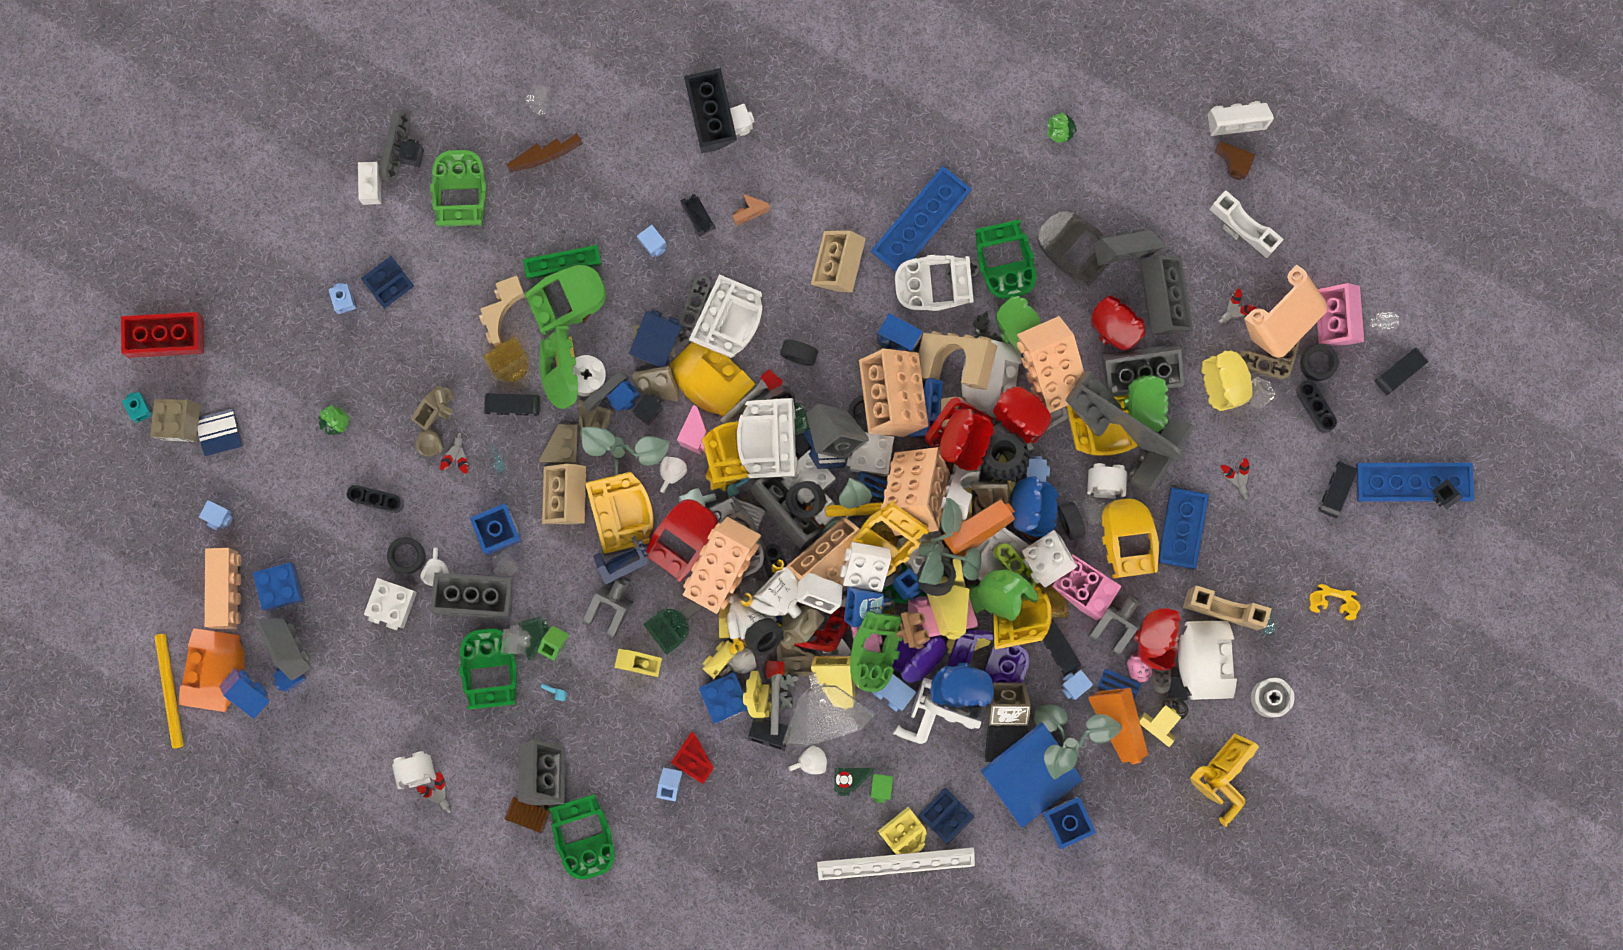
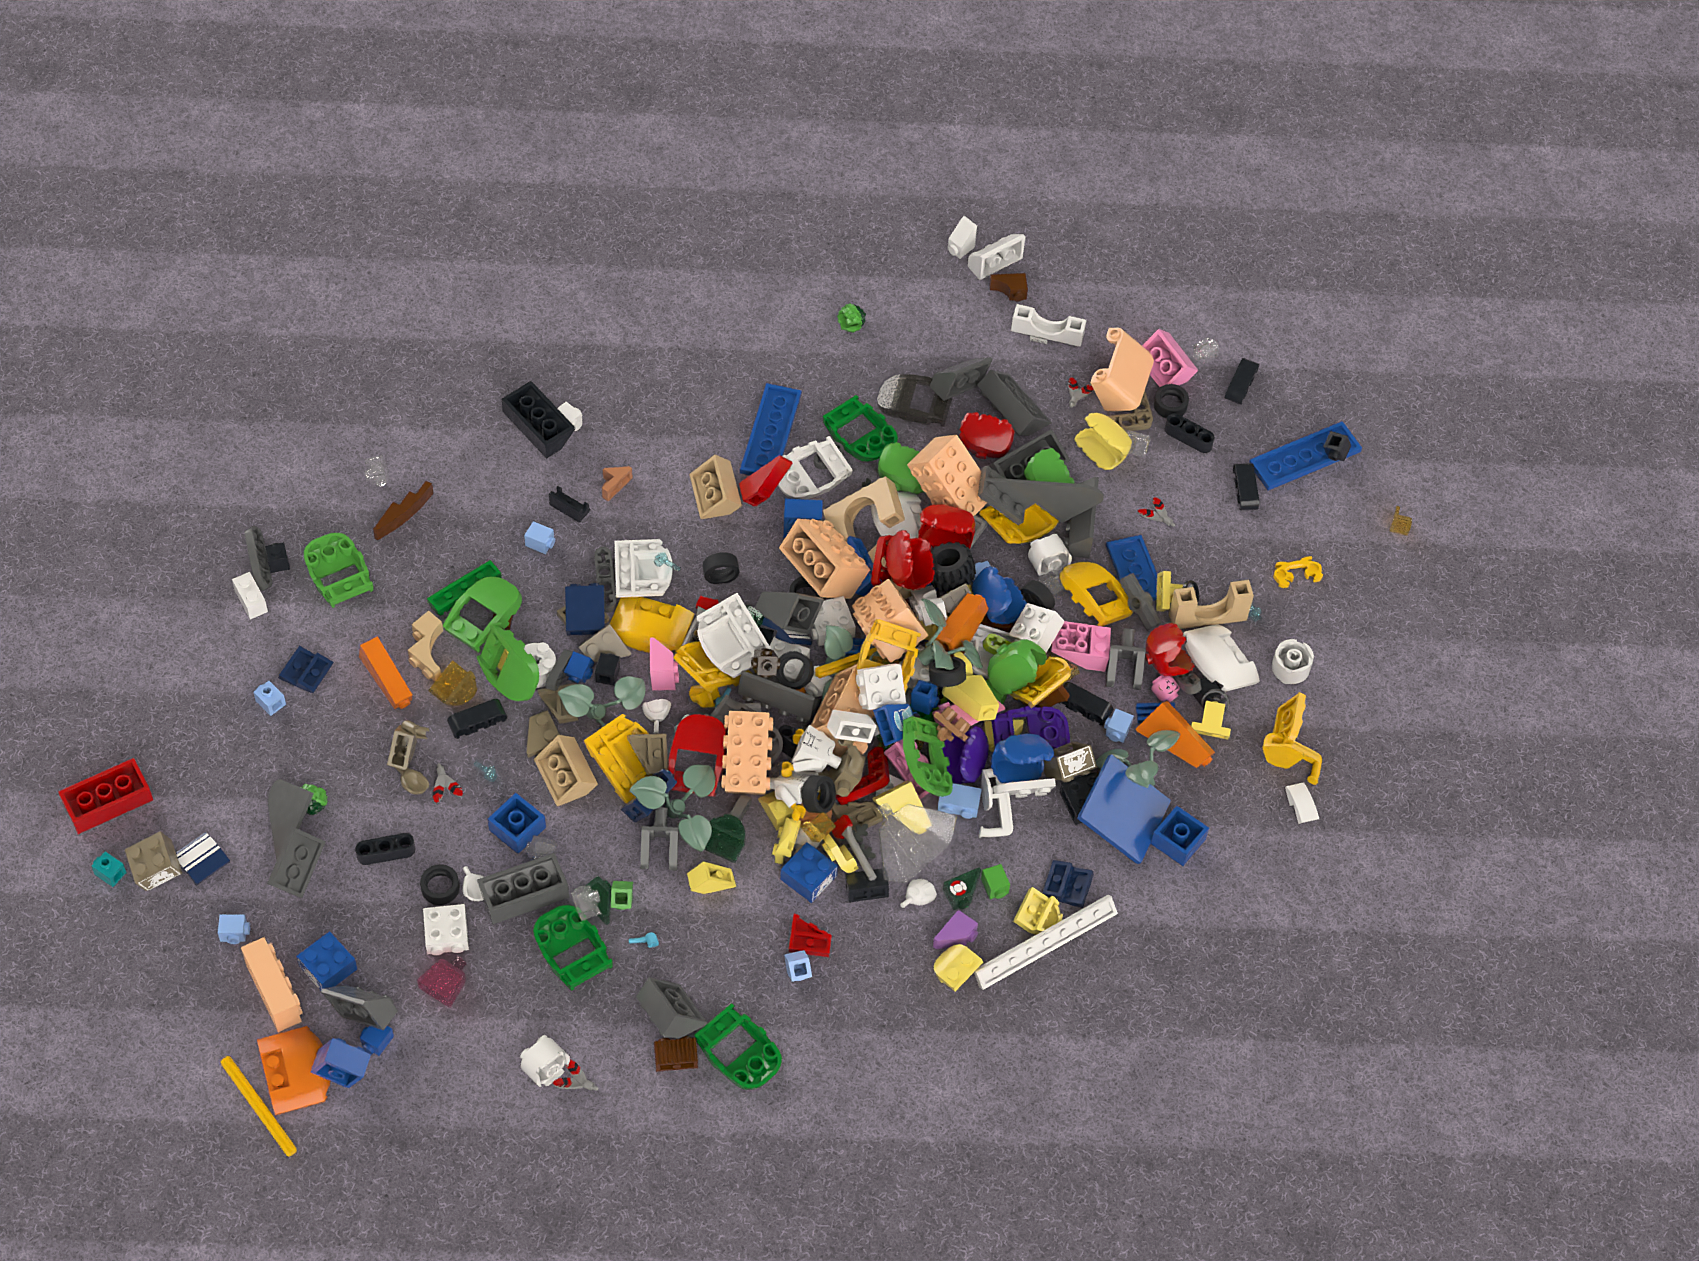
camera: 30 degrees left, 25 degrees down
(295, 471) = (294, 849): none -> dark grey piece
(368, 651) = (444, 981): none -> clear pink torso
(451, 323) = (385, 673): none -> orange slope
(615, 569) = (652, 795): none -> sand green plant
(642, 517) = (651, 751): none -> dark tan wing
(749, 319) = (662, 559): none -> clear light blue hand
(750, 666) = (818, 827): none -> clear yellow panel
(780, 484) = (759, 662): none -> dark brown brick
(804, 850) = (956, 965): none -> light yellow slope
(823, 817) = (958, 930): none -> medium lavender slope
(879, 280) = (764, 481): none -> red slope
(1165, 569) = (1140, 601): none -> dark grey piece
(1200, 841) = (1303, 803): none -> white slope
(1205, 572) = (1166, 590): none -> light yellow piece
(1215, 85) = (962, 238): none -> white slope
(1463, 598) = (1400, 524): none -> clear yellow panel

